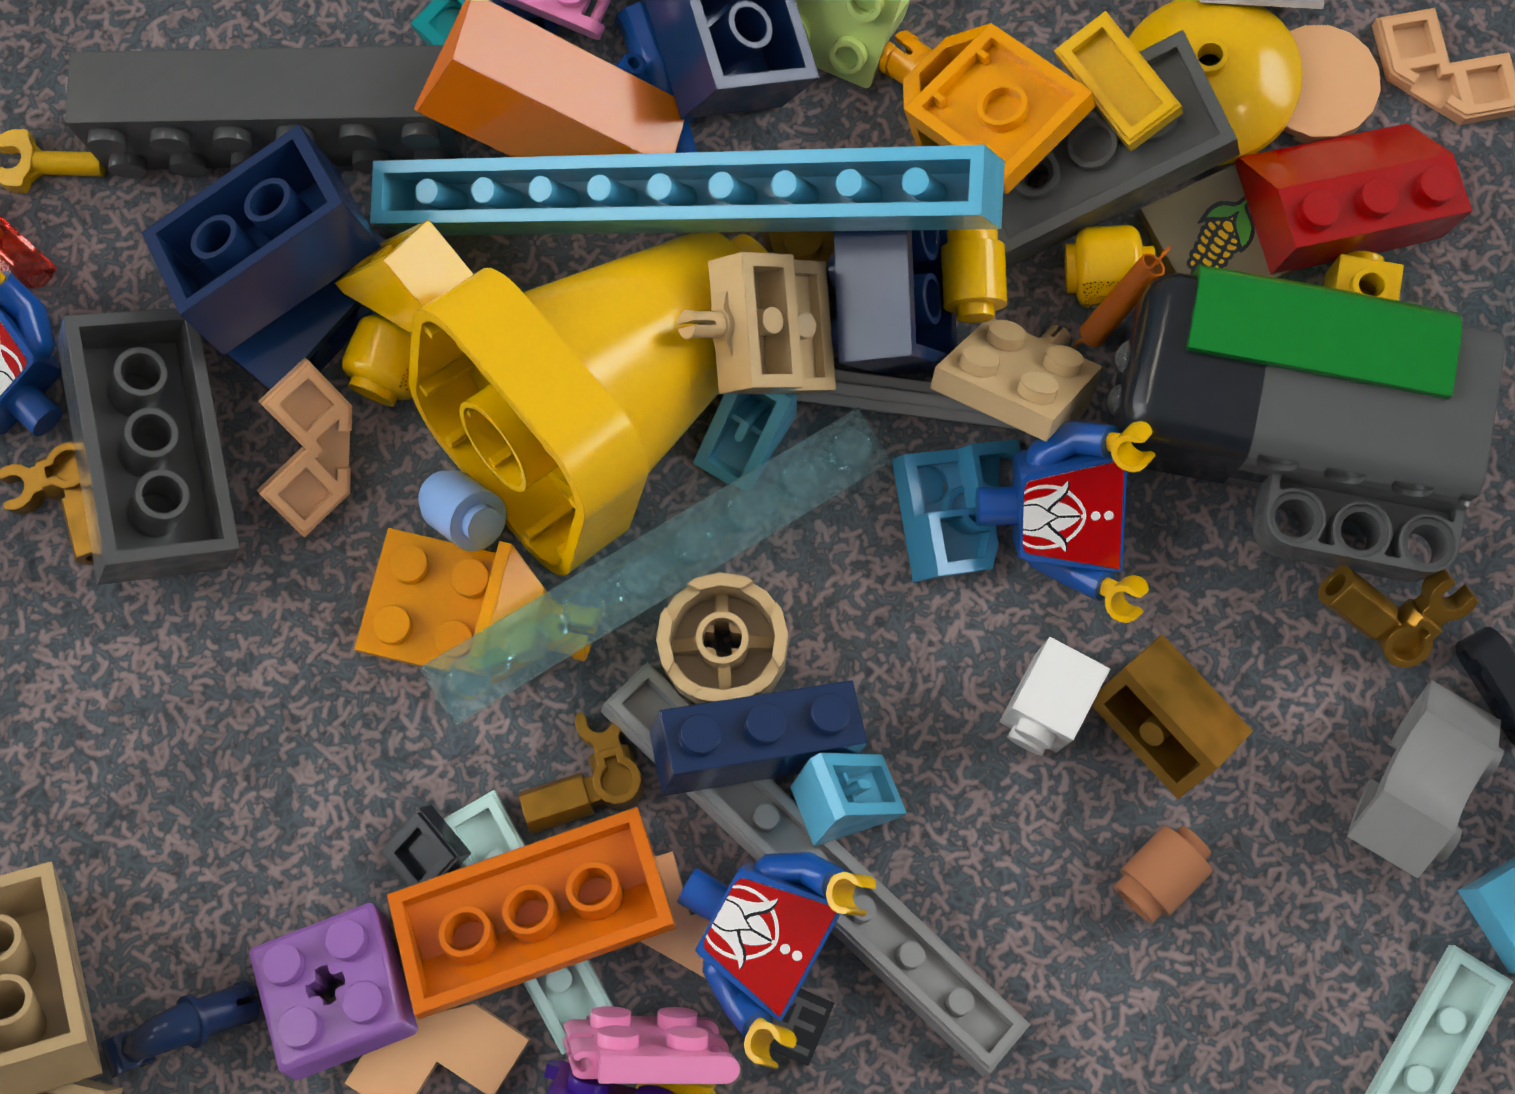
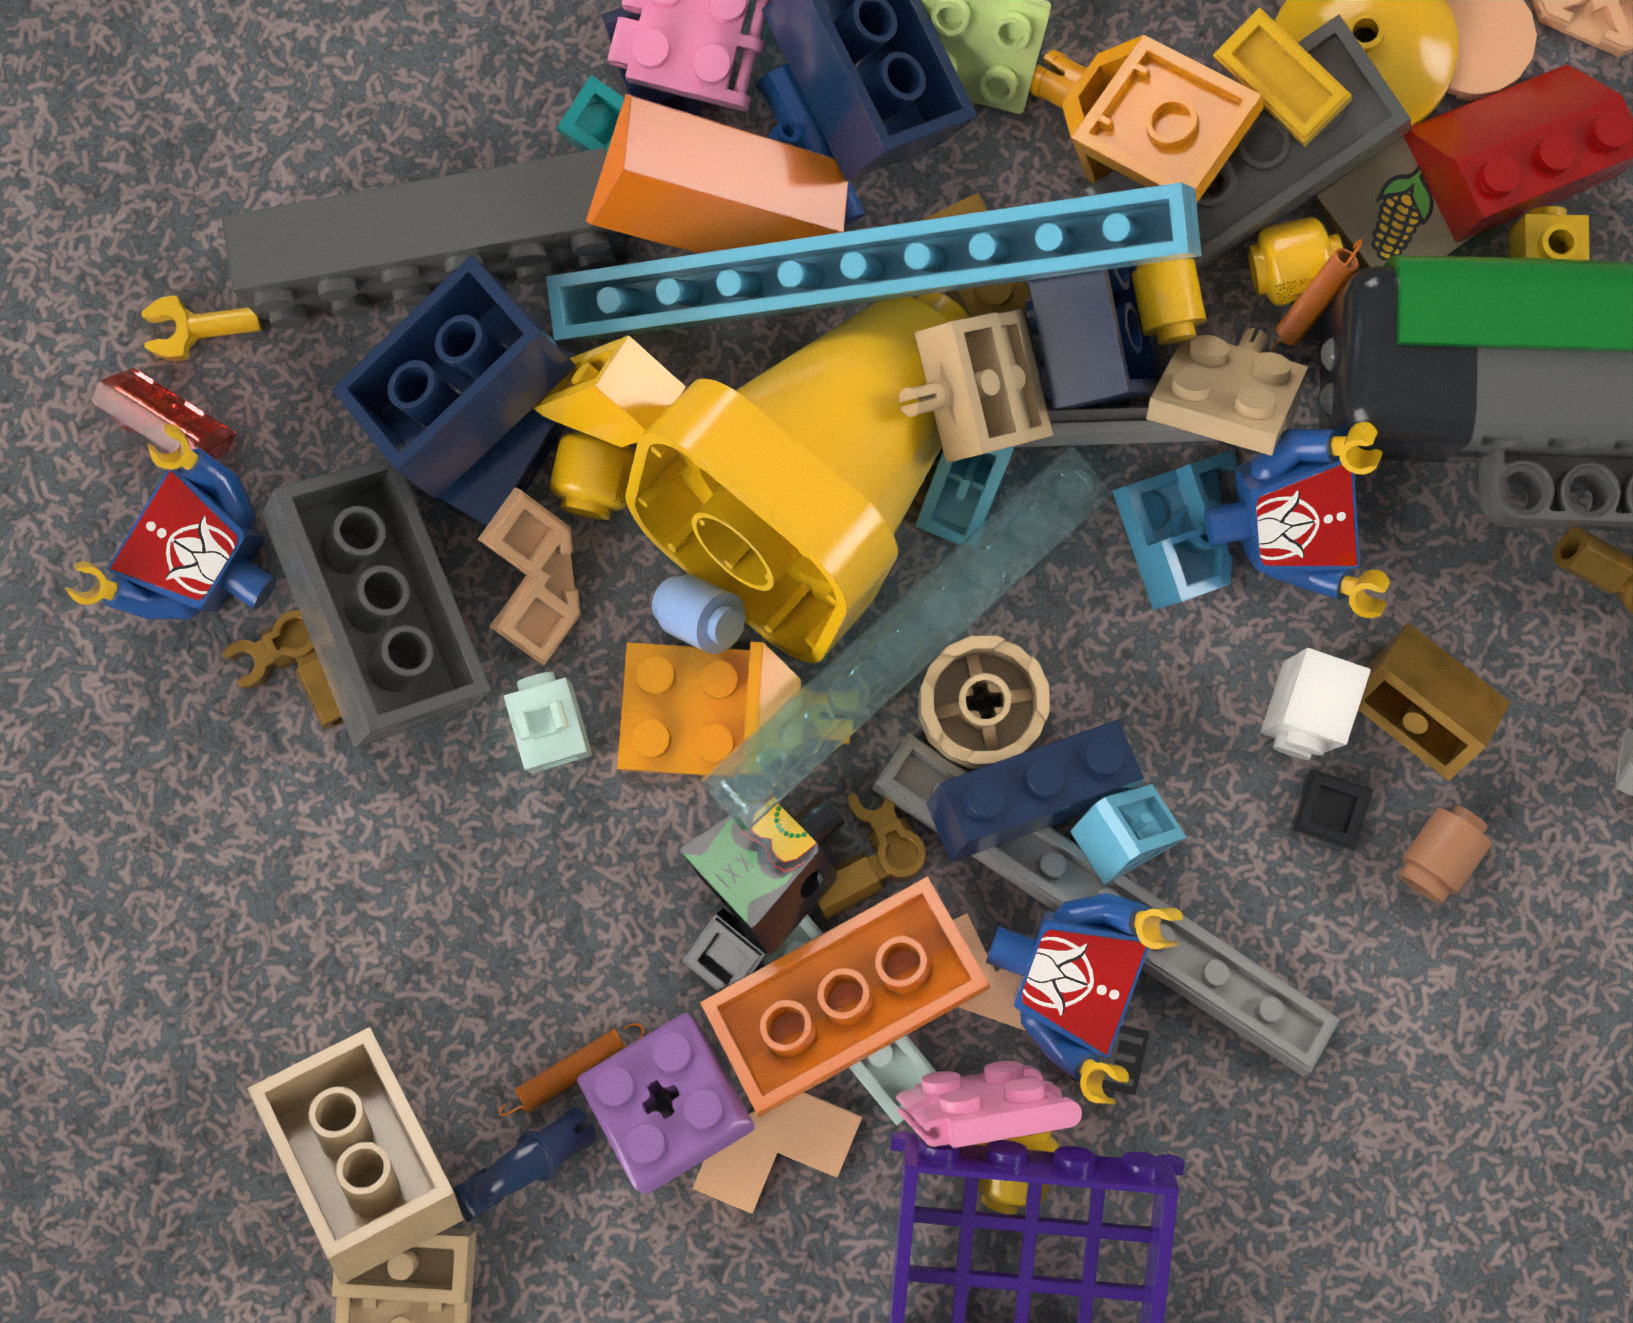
camera: 10 degrees left, 5 degrees up
(237, 946) = (566, 1072): none -> orange piece
(293, 592) = (547, 722): none -> light aqua brick
(480, 770) = (768, 872): none -> torso
(1057, 810) = (1331, 809): none -> black tile

